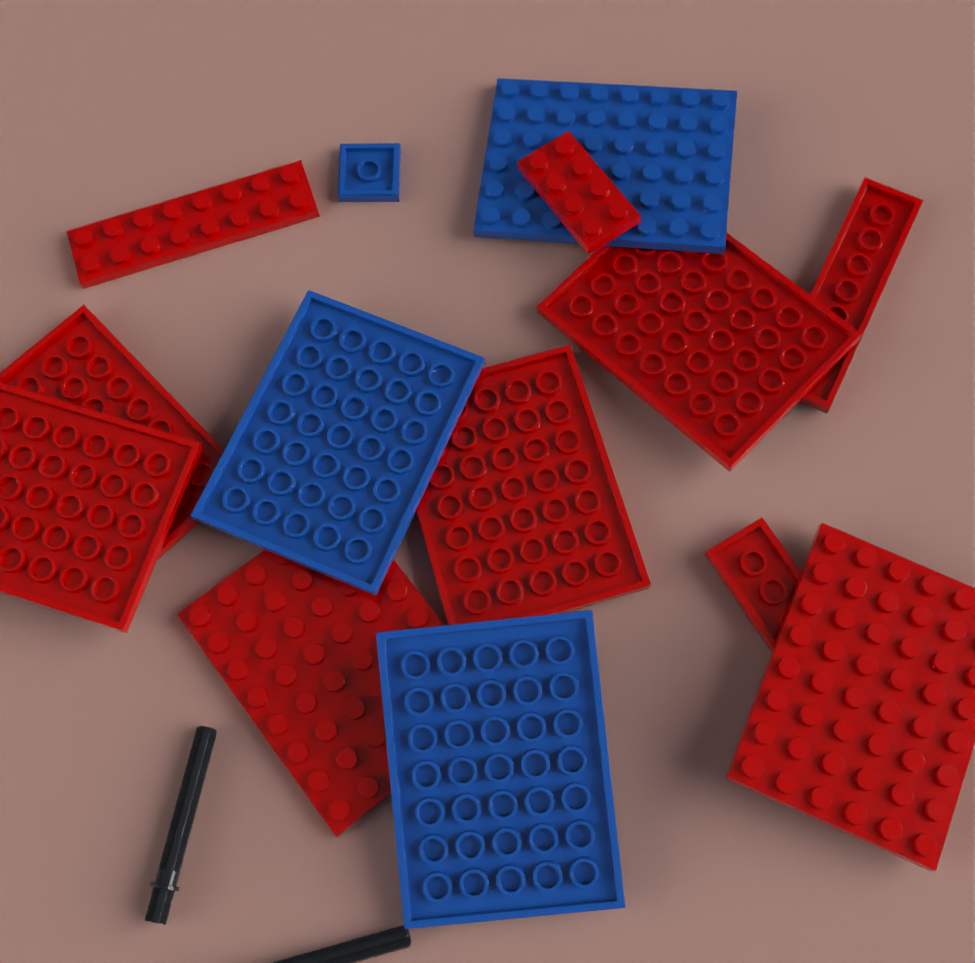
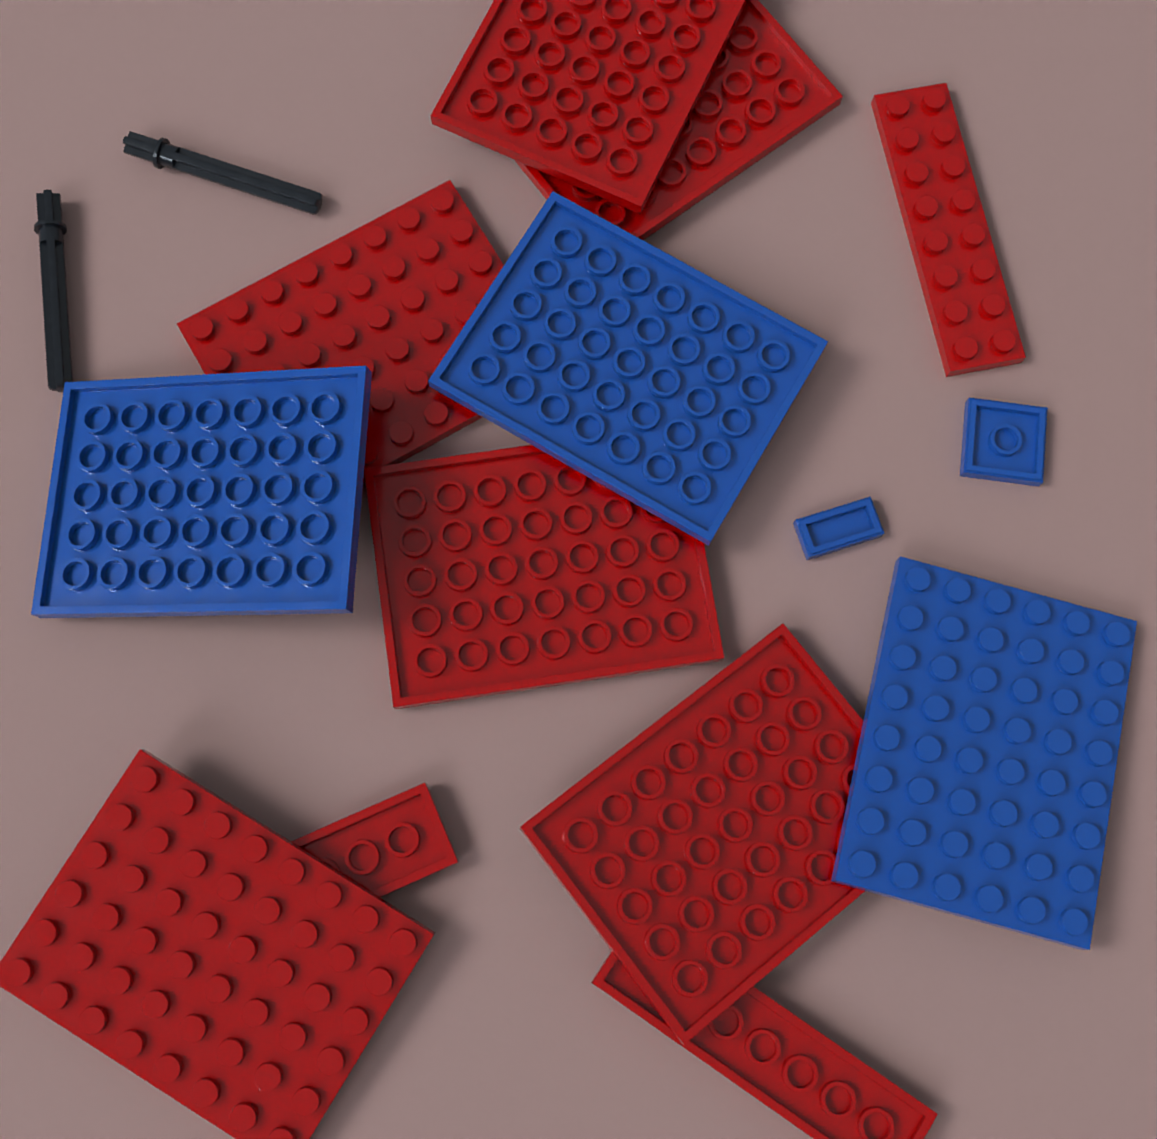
camera: 90 degrees right, 5 degrees up
(453, 279) = (838, 528): none -> blue tile
(579, 192) = (937, 695): red plate -> none

